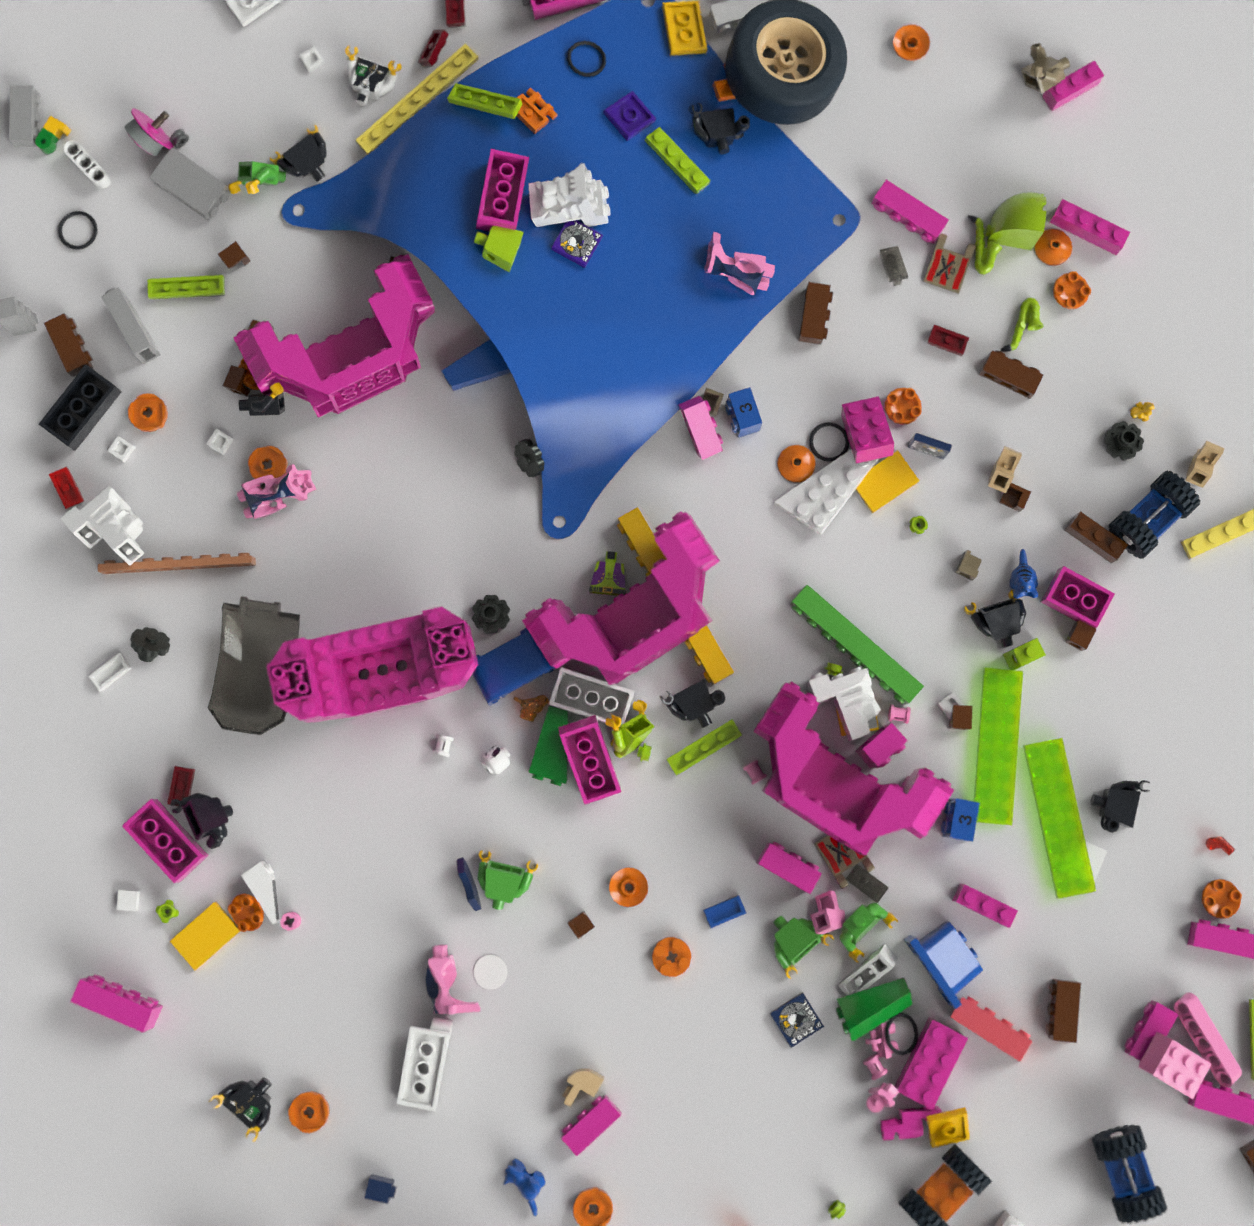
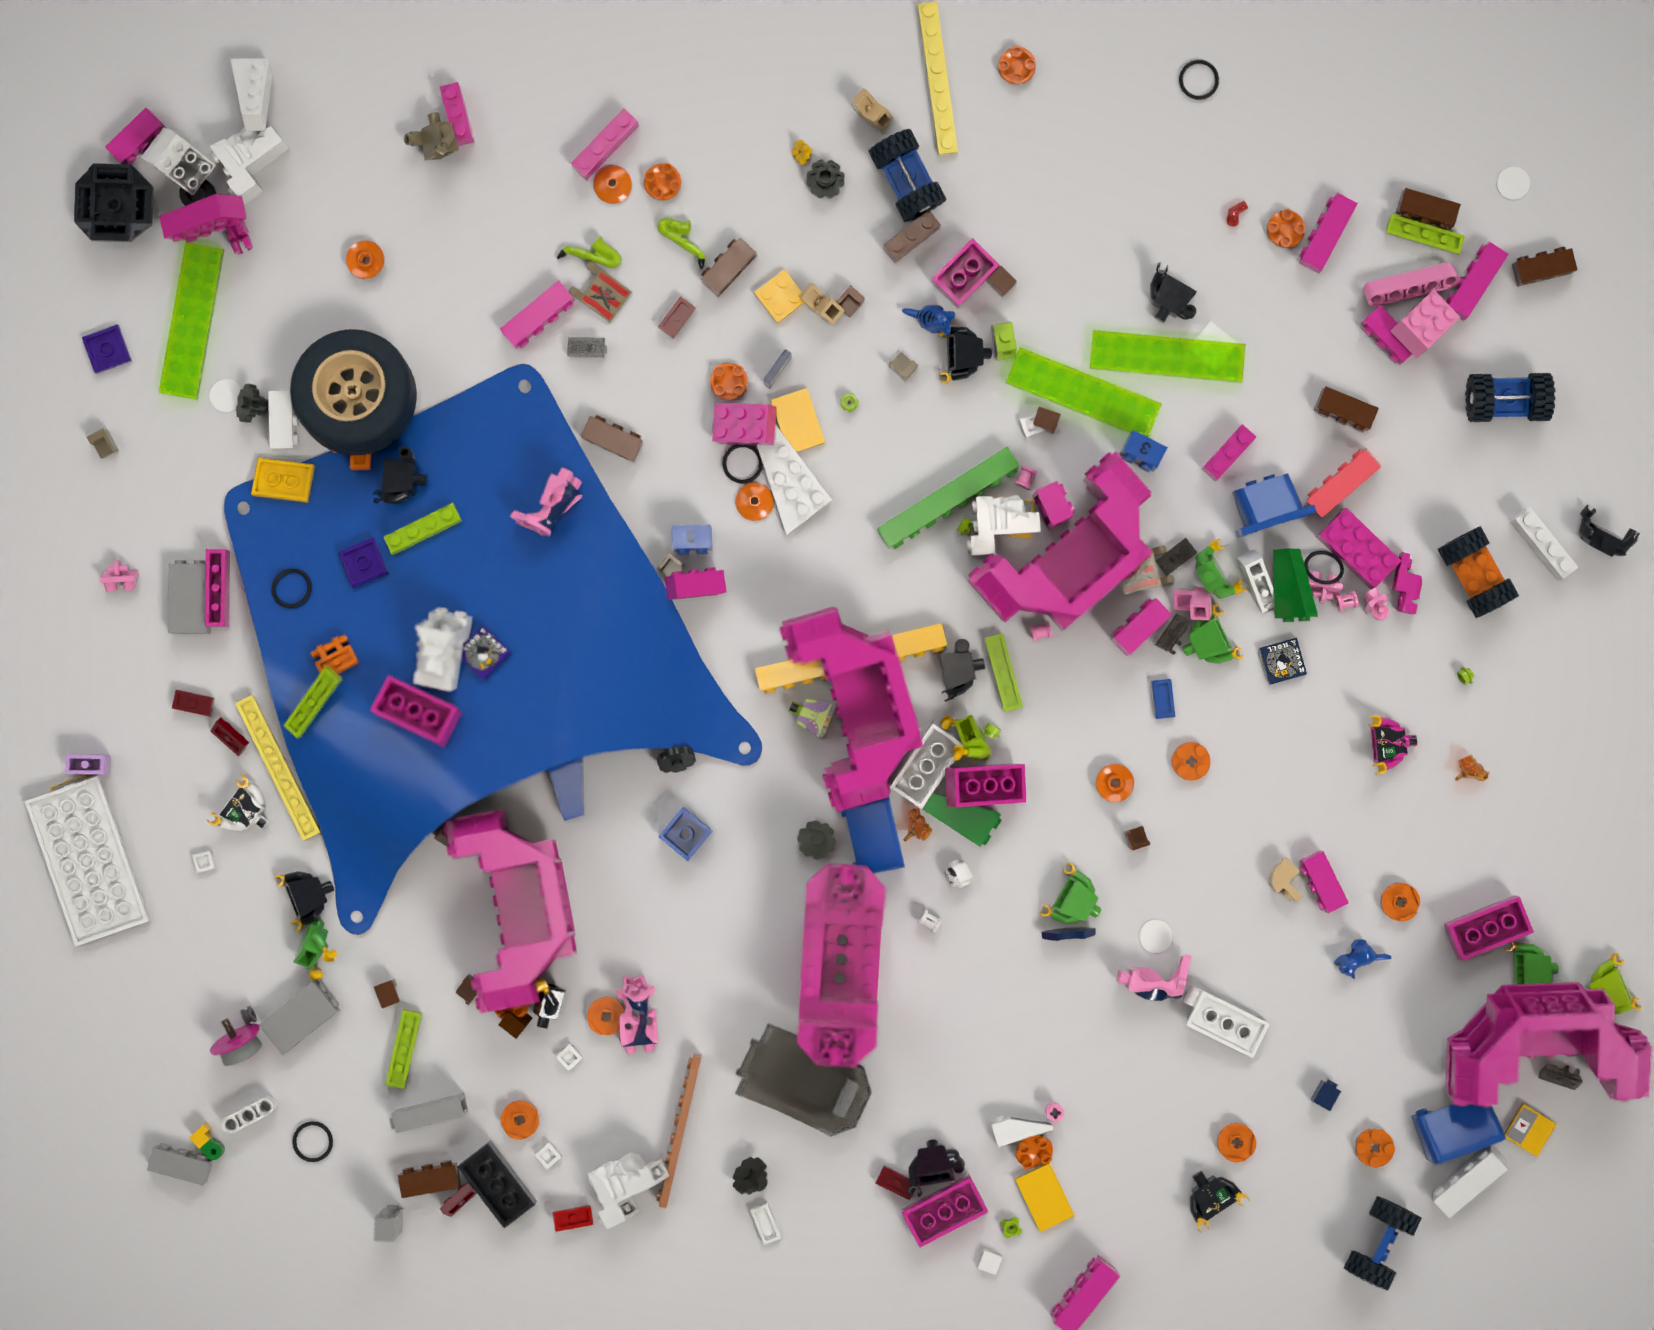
camera: 75 degrees left, 5 degrees up
(54, 376) = (454, 1203): none -> dark red plate
(461, 487) = (685, 833): none -> blue brick
(500, 246) = (469, 728): lime torso -> none
(747, 1151) = (1389, 743): none -> torso
(787, 900) = (1172, 633): none -> clear smoke plate
(948, 1127) = (1421, 550): yellow tile -> none
(998, 430) = (780, 296): none -> yellow plate
(1018, 221) = (578, 212): lime brick -> none

